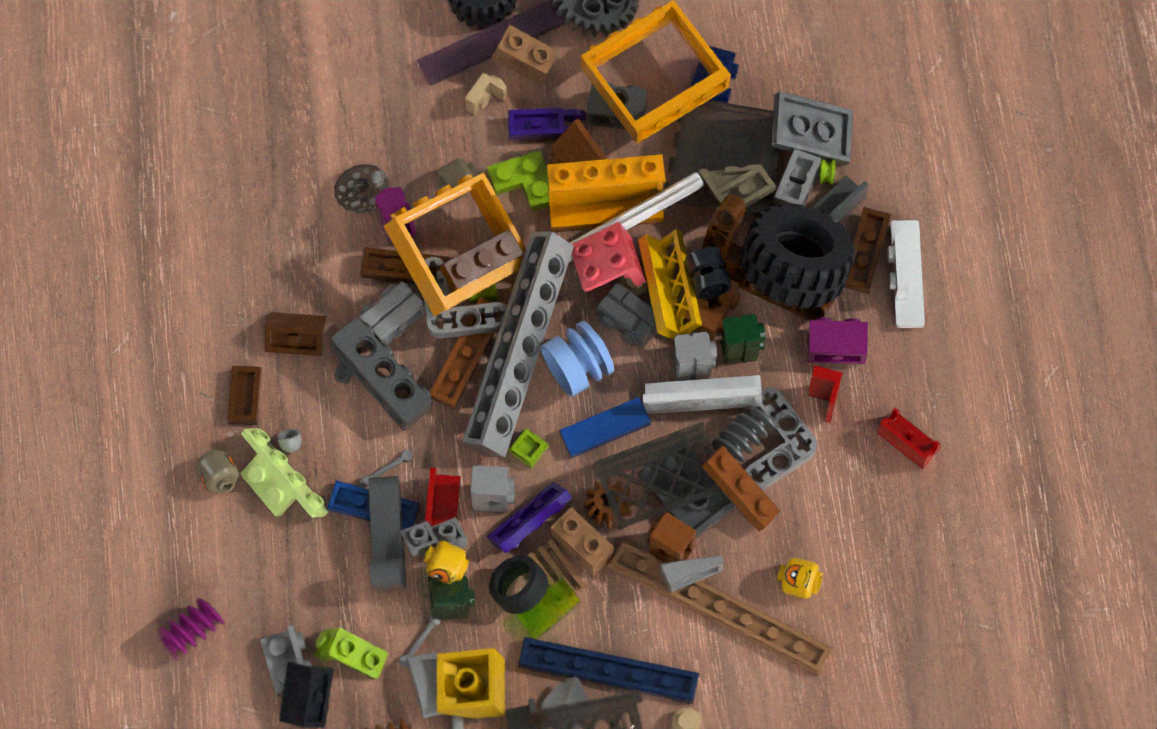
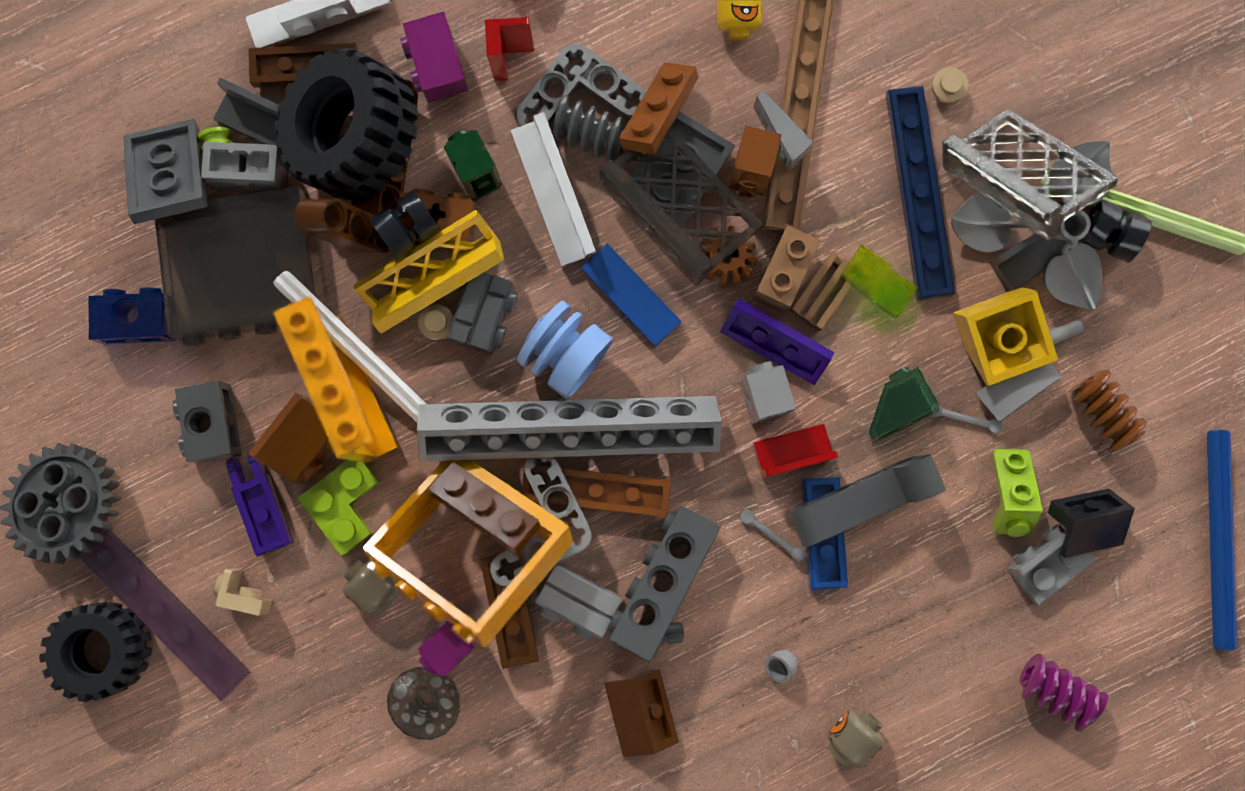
camera: 110 degrees left, 15 degrees up
(244, 395) = (742, 745): reddish brown tile -> none
(276, 480) = (835, 662): yellowish green bracket -> none
(422, 535) = (852, 440): light grey slope -> none
(445, 562) = (885, 410): yellow head -> none
(507, 573) = (871, 348): black tyre -> none
(524, 55) = (172, 561): medium nougat brick -> none
(528, 448) = (687, 376): lime tile -> none
(607, 257) = (423, 359): coral bracket -> none
(679, 105) = (90, 346): light orange window -> none
(694, 356) = (515, 212): light grey brick -> none
(748, 183) = (272, 230): dark tan wing -> none

